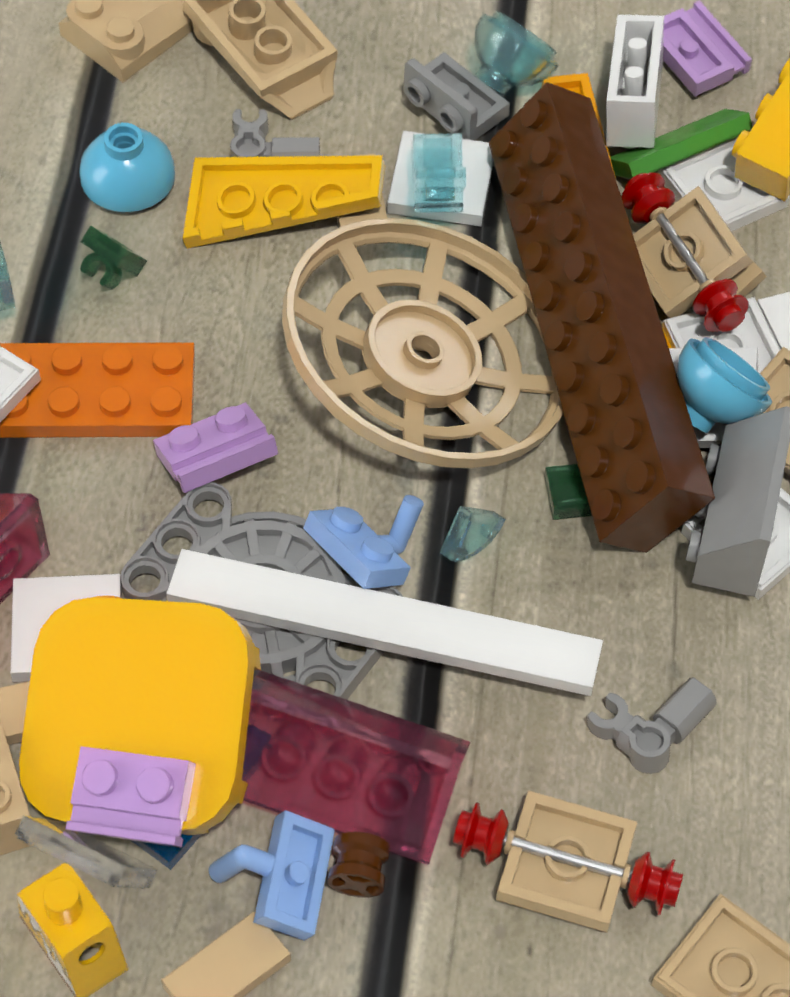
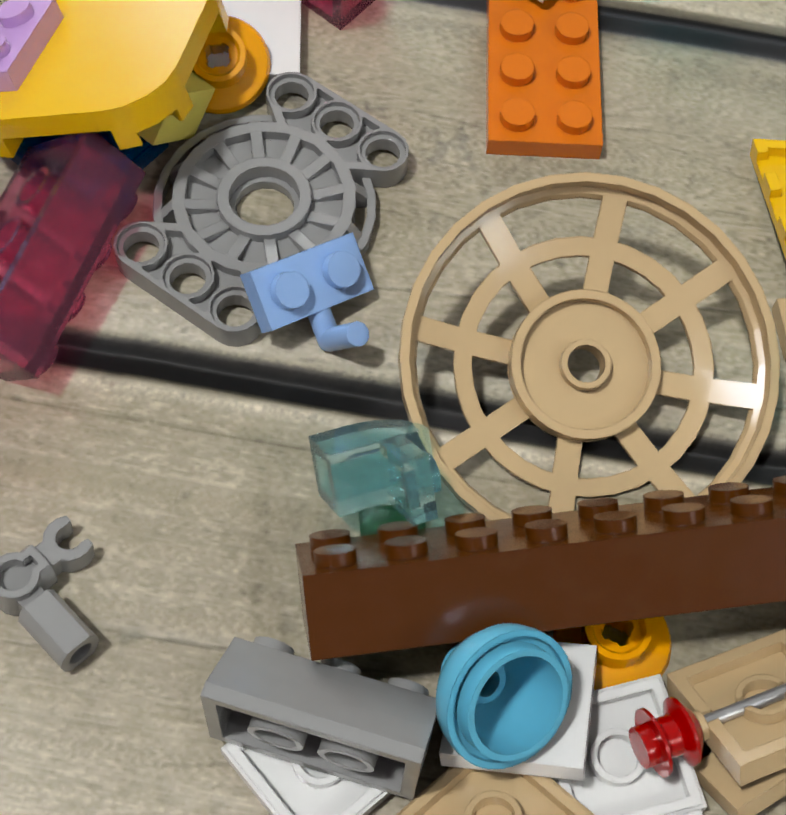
camera: 90 degrees right, 5 degrees up
(111, 254) = (720, 70): clear green tile -> none
(215, 447) = (453, 157): lavender plate -> none
(388, 622) = (195, 319): white tile -> none
(471, 532) = (327, 404): clear light blue tile -> none
(525, 480) = (376, 466): none -> clear light blue brick

